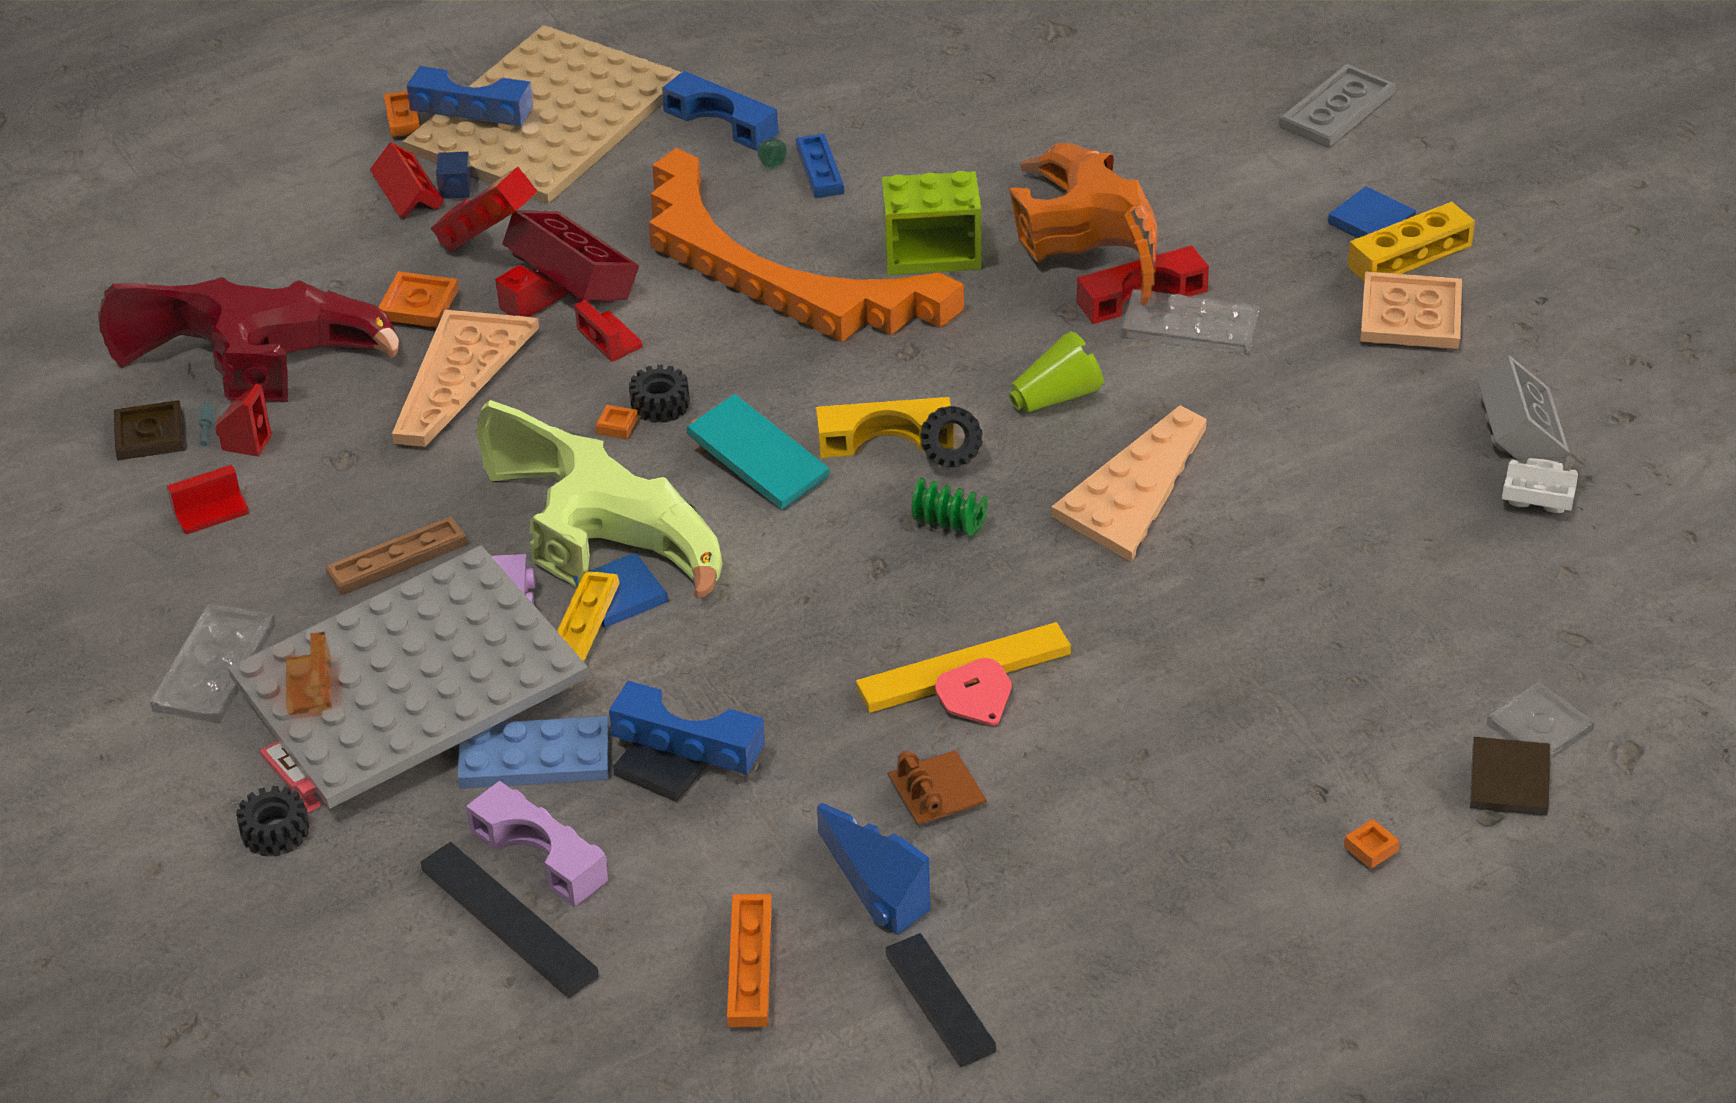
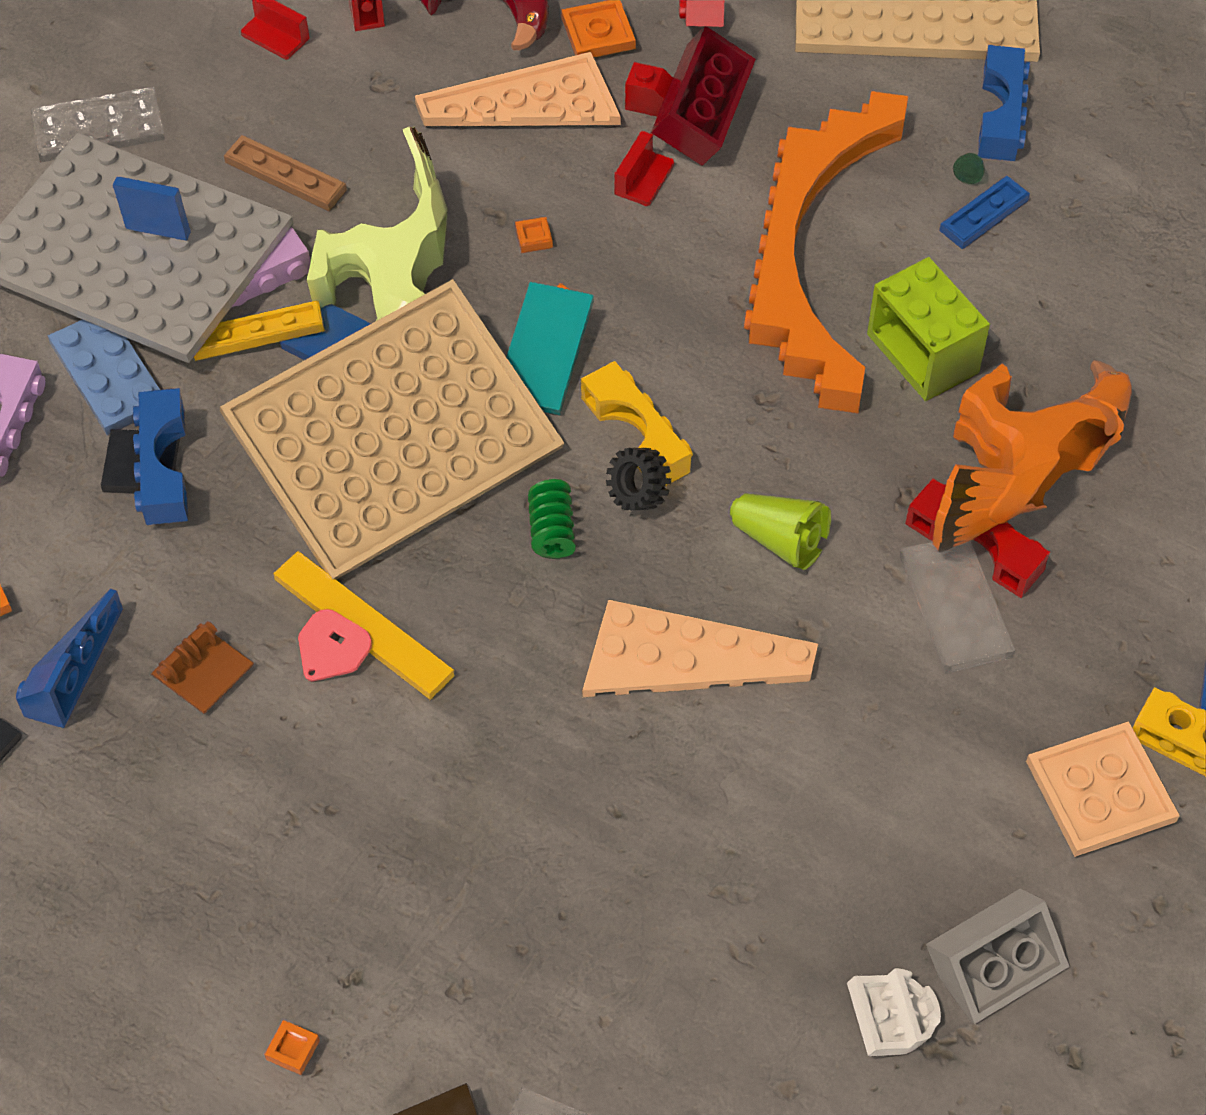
camera: 60 degrees right, 15 degrees up
(310, 678) = (75, 187): clear orange panel -> none
(413, 612) = (151, 208): none -> blue tile
(647, 384) = (581, 259): black tyre -> none
(784, 562) = (391, 429): none -> tan plate

